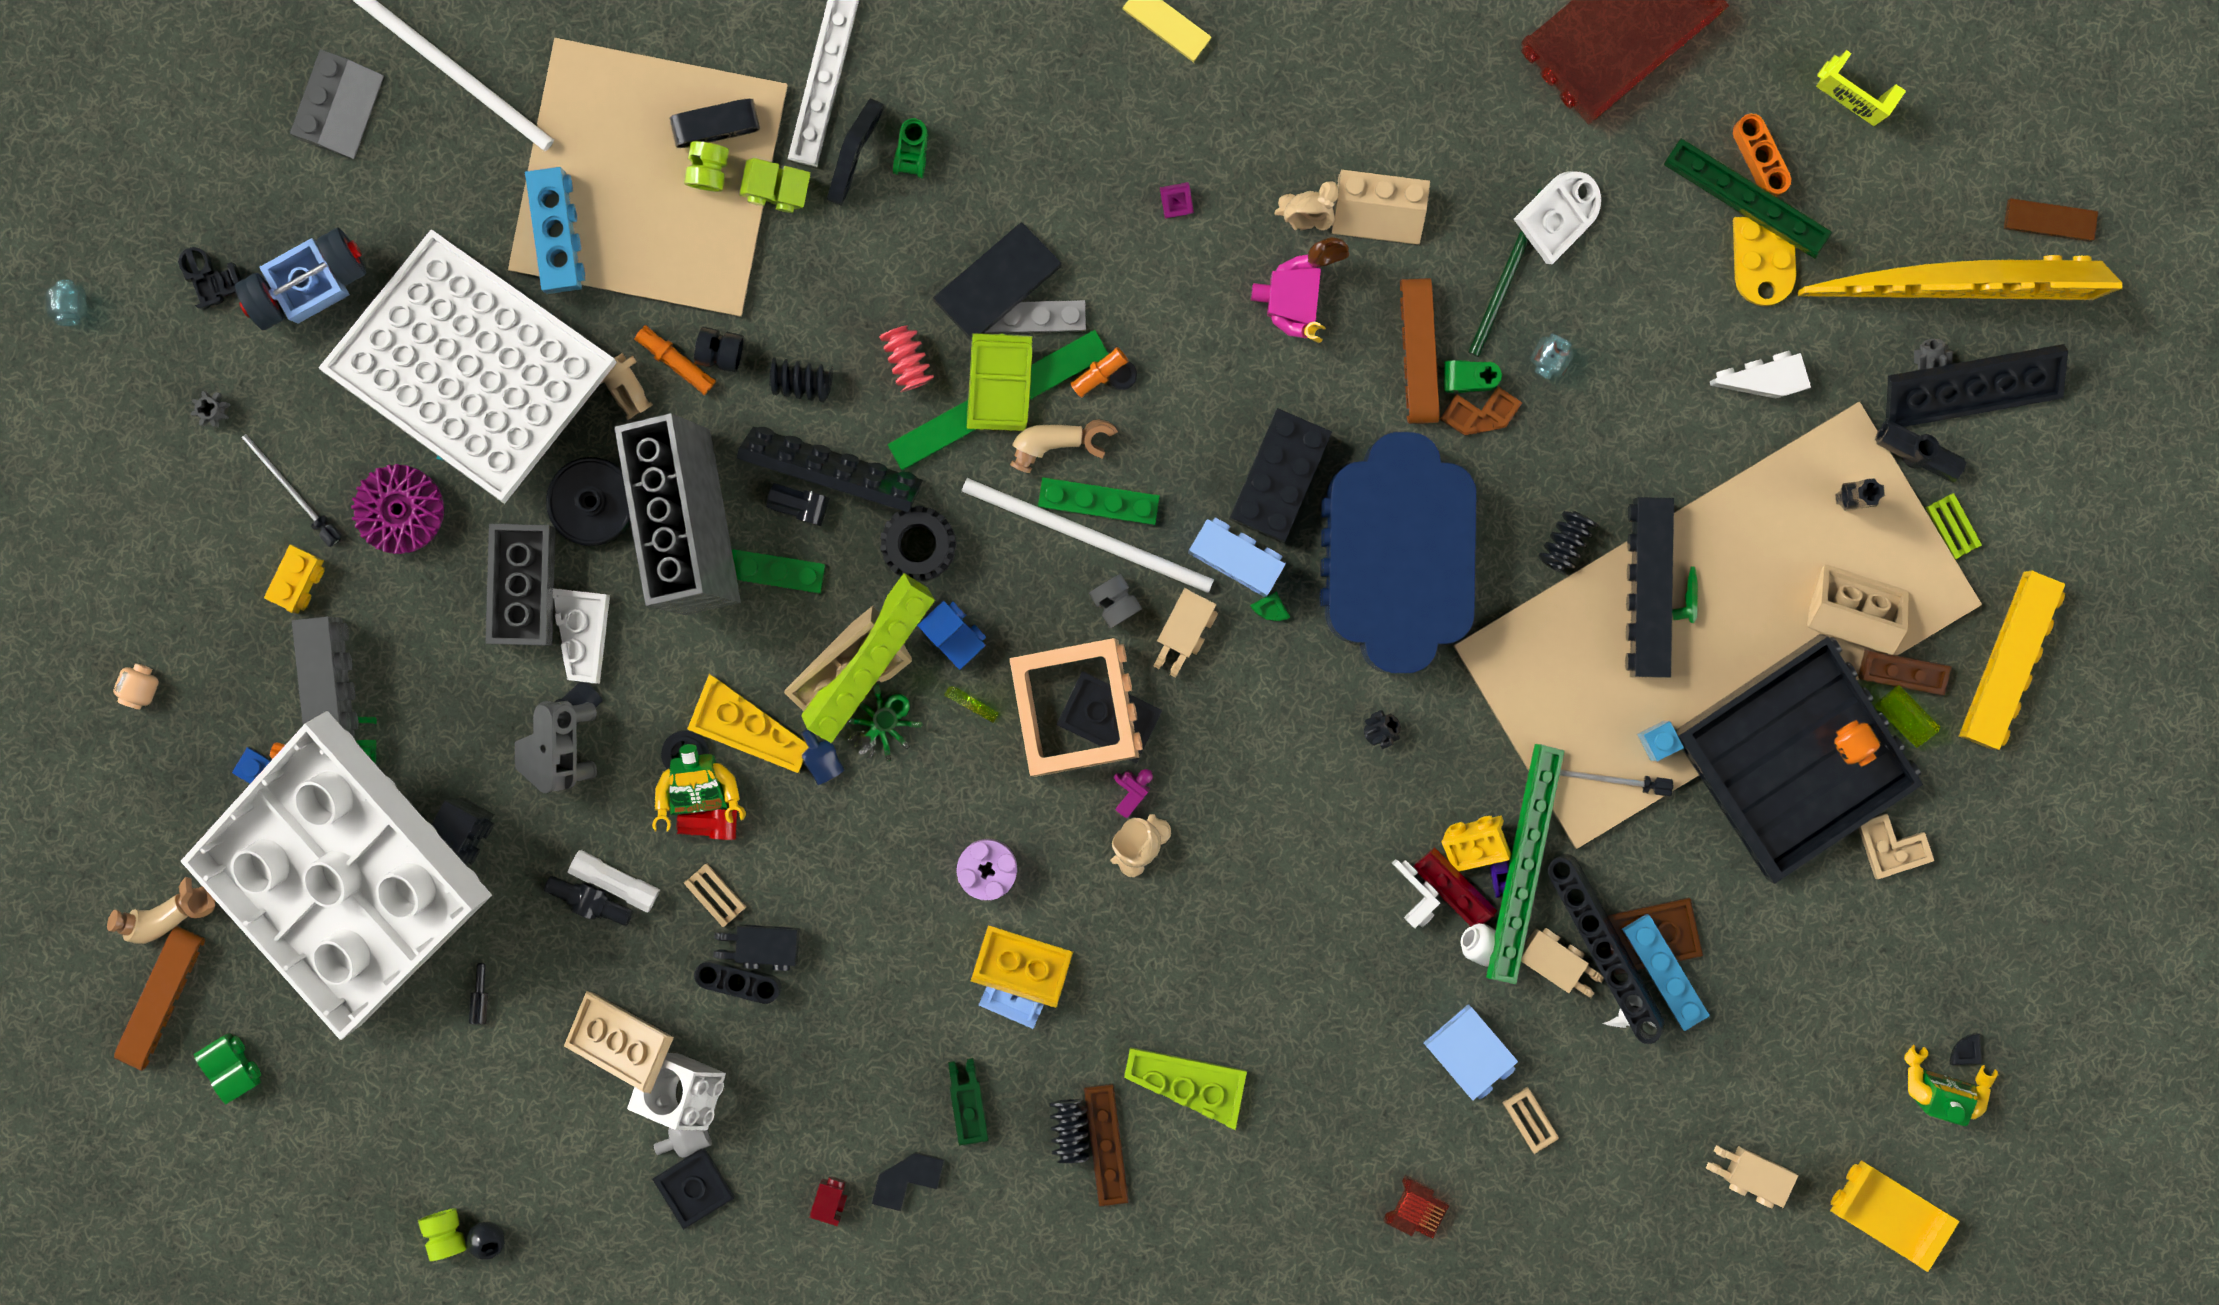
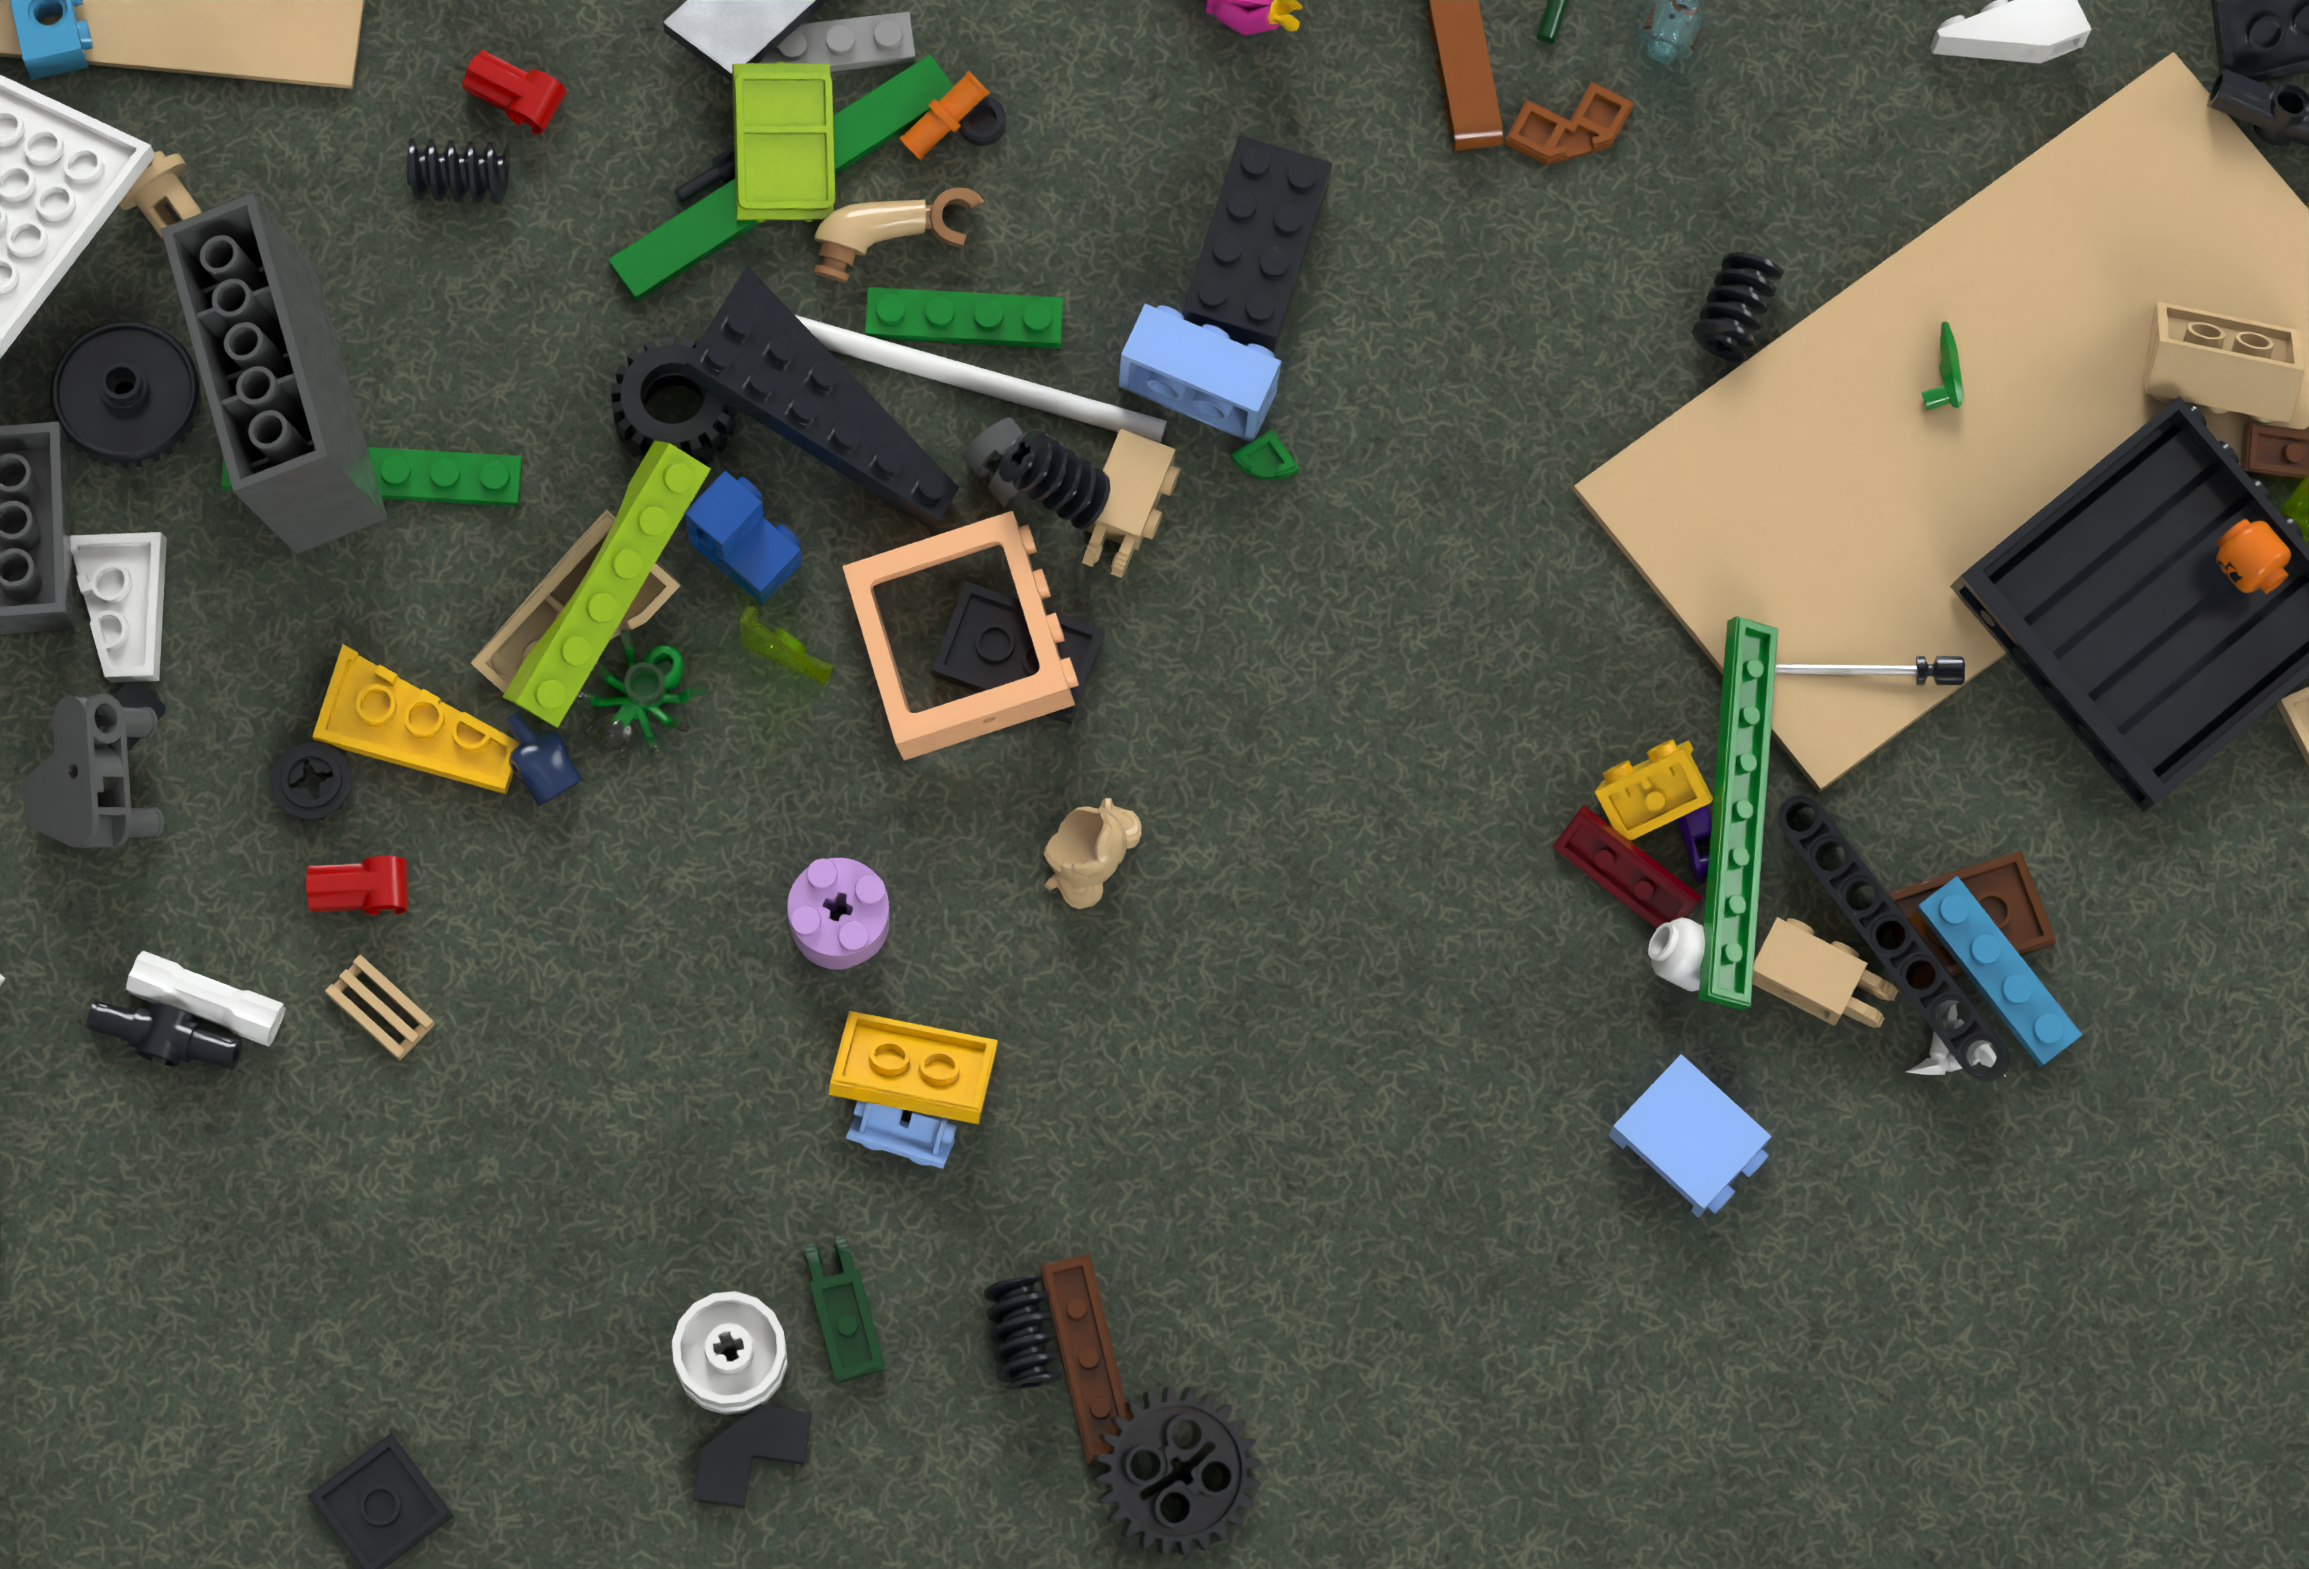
camera: 10 degrees left, 15 degrees down
(618, 1042) = (233, 1251): tan tile -> none
(670, 356) = (232, 152): orange pin -> none
(684, 1142) = (359, 1421): light grey piece -> none
(694, 786) = (333, 822): torso -> none
(700, 1093) = (309, 1309): white brick -> none
(723, 981) = (411, 1127): black beam -> none
(729, 350) = (319, 135): black wheel -> none
(761, 946) = (465, 1079): black hinge -> none
(804, 505) = (479, 366): black piece -> none
(829, 468) = (502, 293): black plate -> none
(829, 1201) = (619, 1498): dark red brick -> none
(845, 333) = (522, 95): none -> red piece
(894, 1142) = (724, 1323): none -> white wheel
(906, 358) = (625, 121): coral piece -> none
(961, 391) = (722, 168): none -> black axle
(988, 540) = (792, 384): none -> black wing
(1136, 788) = (1077, 766): magenta piece -> none
(1136, 1197) = (1201, 1509): none -> black gear
(1141, 622) = (1056, 478): none -> black piece
(1192, 1083) = (1230, 1239): lime wing -> none
(1382, 729) = (1473, 626): black gear -> none
(1399, 553) = (1465, 342): dark blue brick -> none
(1417, 1209) = (1635, 1411): clear red piece -> none
(1422, 912) = (1578, 914): white bracket -> none
(1466, 376) = (1542, 71): green piece -> none
(1517, 1099) = (1834, 1279): tan tile -> none
(1650, 587) = (1881, 358): black brick -> none
(1660, 741) = (1932, 594): dark azure brick -> none
(1755, 1175) = (2199, 1293): tan hinge -> none
(1860, 494) = (2194, 170): black piece -> none

